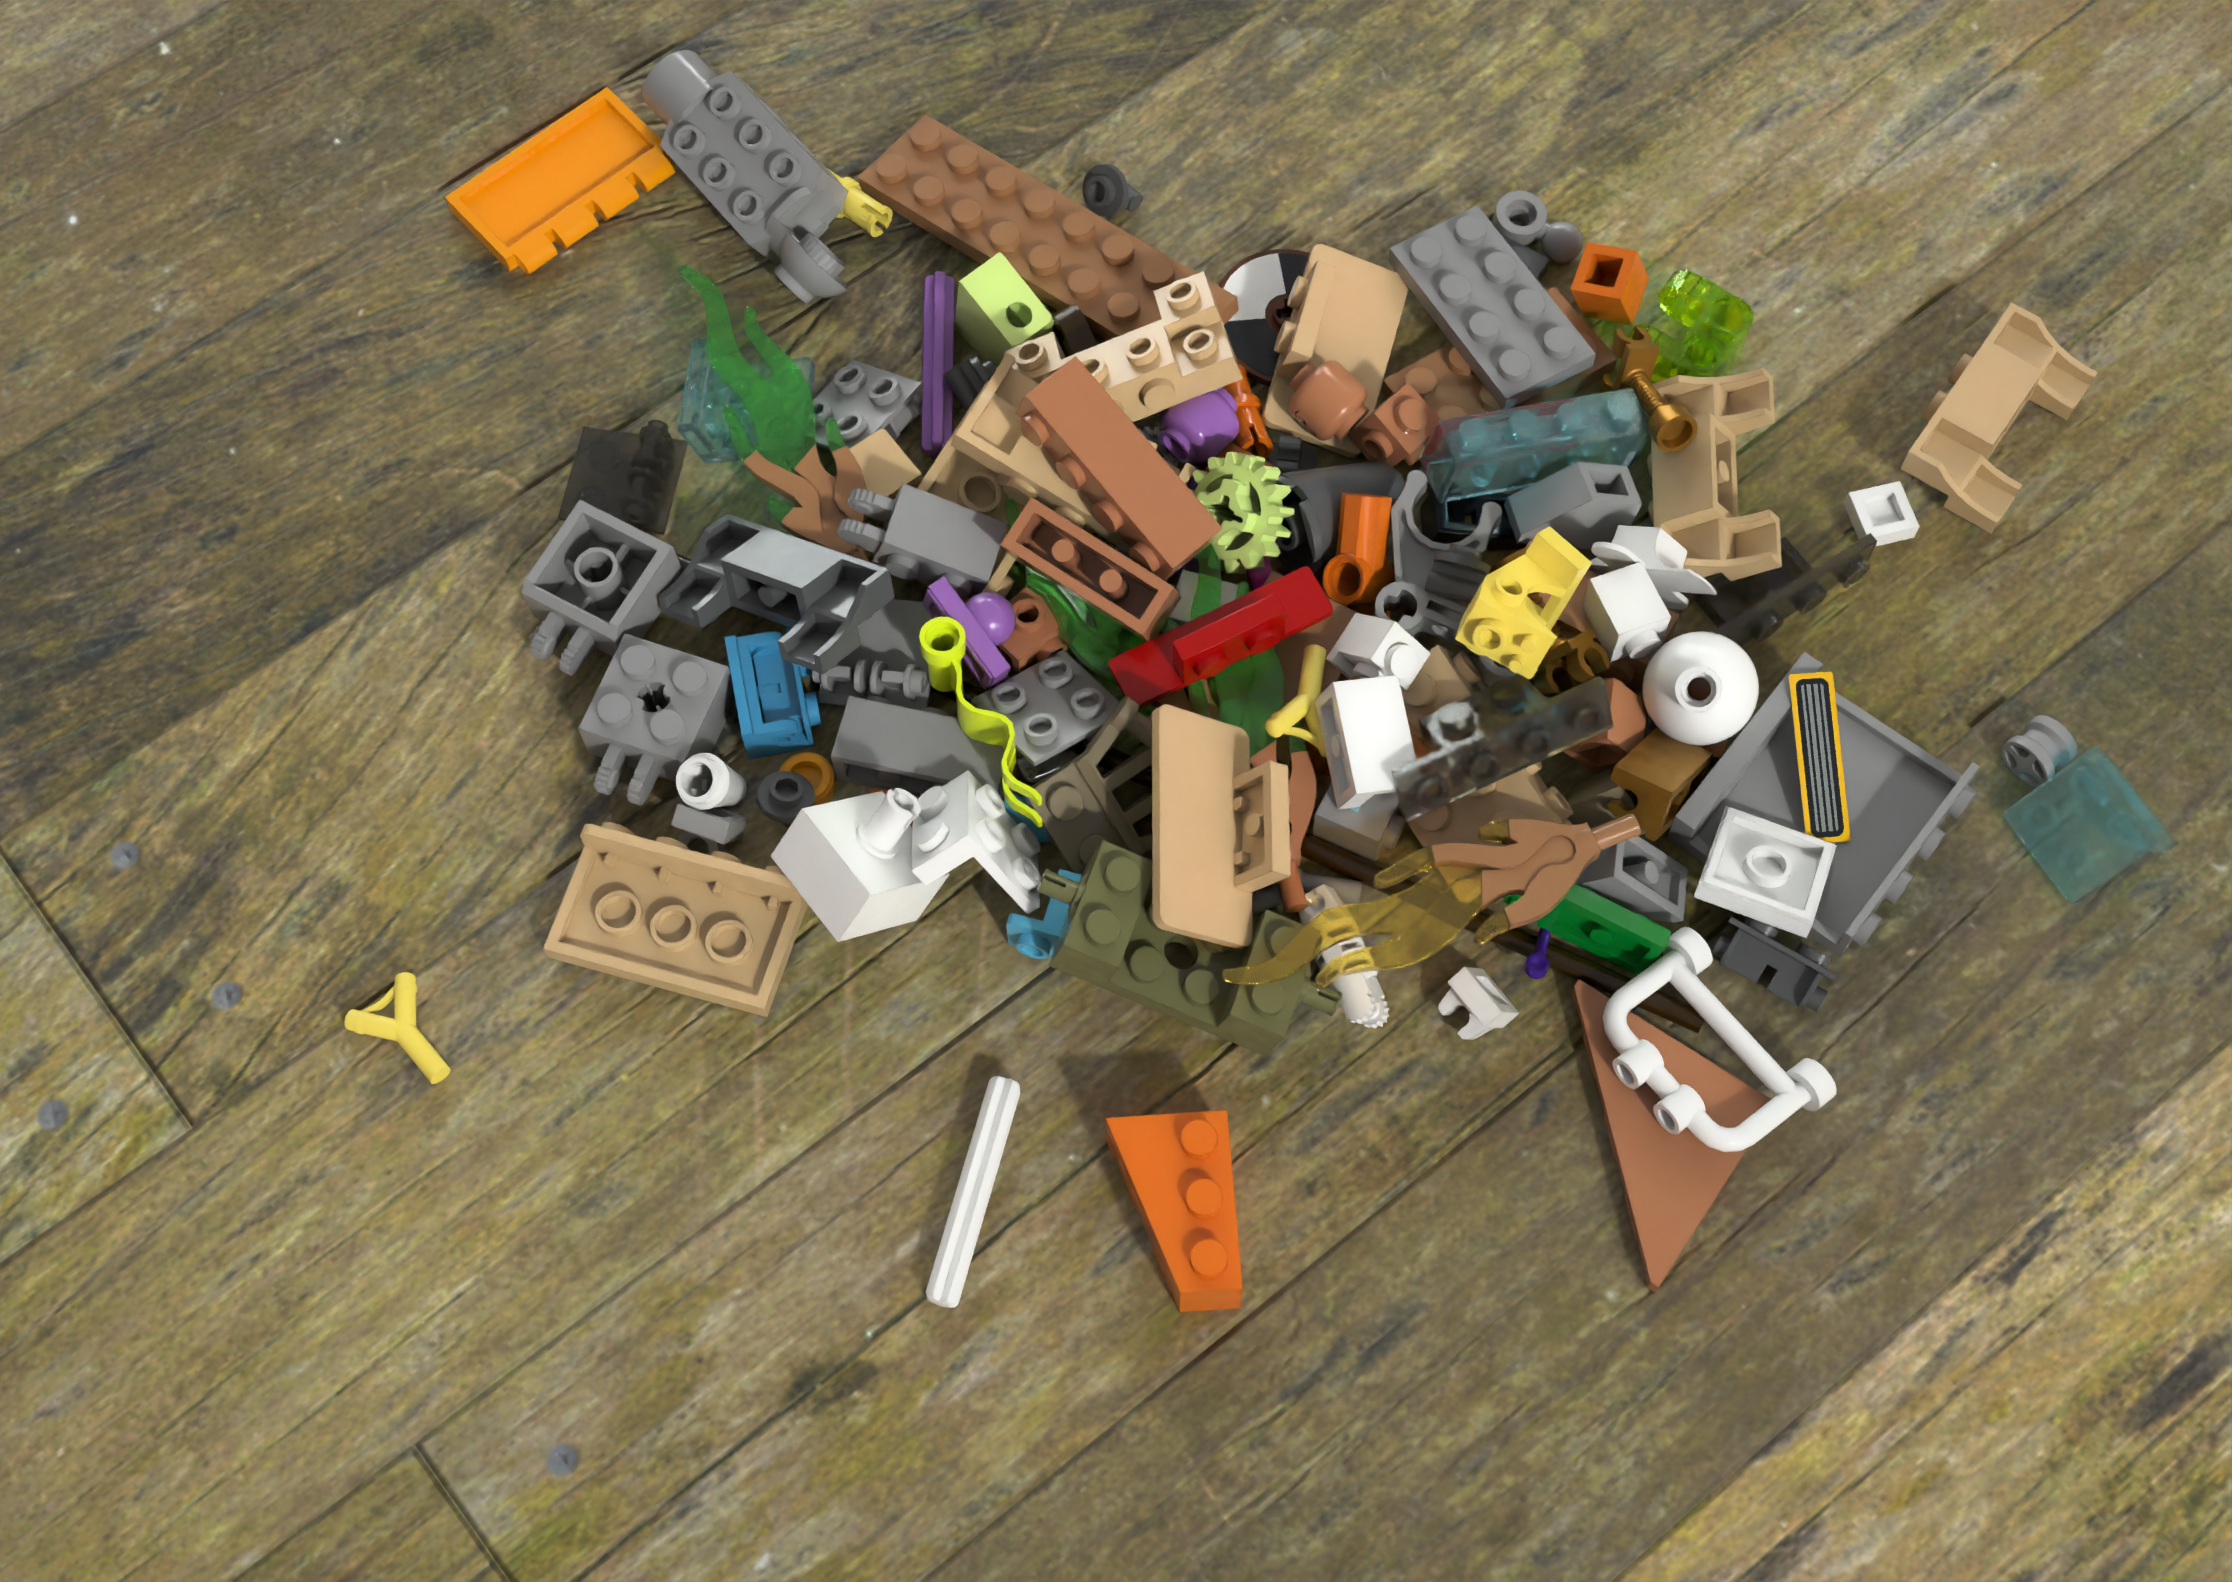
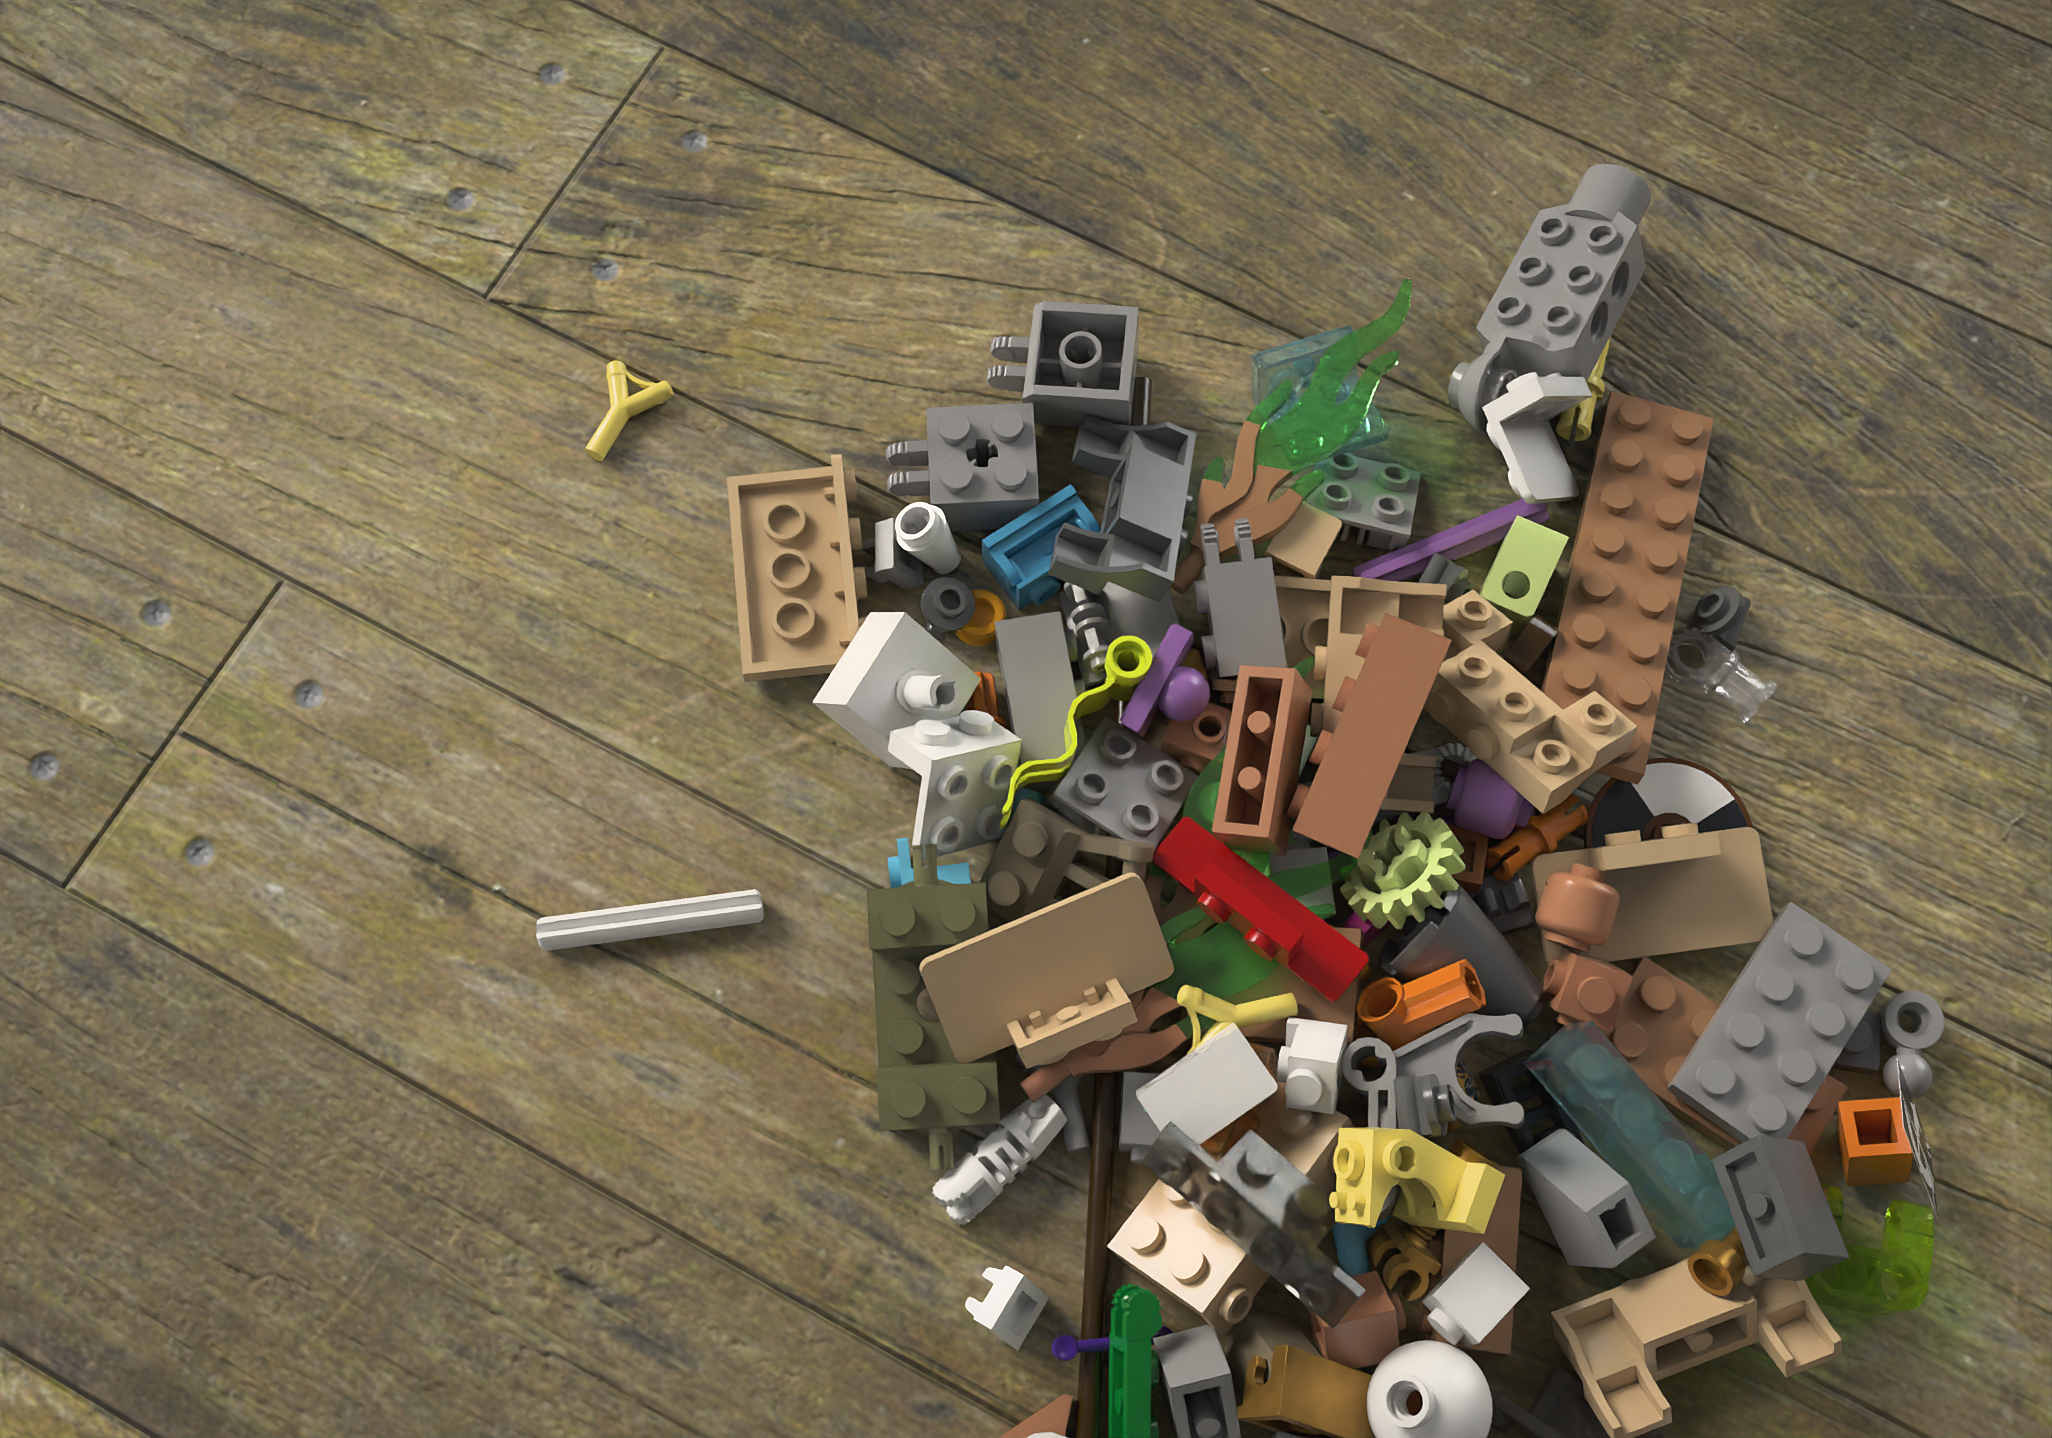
camera: 65 degrees right, 5 degrees up
(560, 180) = (1473, 154): light orange hinge -> none
(627, 475) = (1200, 341): clear smoke hinge -> none
(868, 257) = (1524, 435): none -> white bracket
(1166, 210) = (1719, 673): none -> clear connector
(1186, 1200) = (696, 1108): orange wedge -> none
(1462, 880) = (1091, 1236): clear yellow piece -> none
(1644, 253) = (1917, 1137): none -> black sticker
(1644, 361) = (1779, 1208): none -> dark grey panel
(1661, 558) = (1552, 1296): white piece -> none

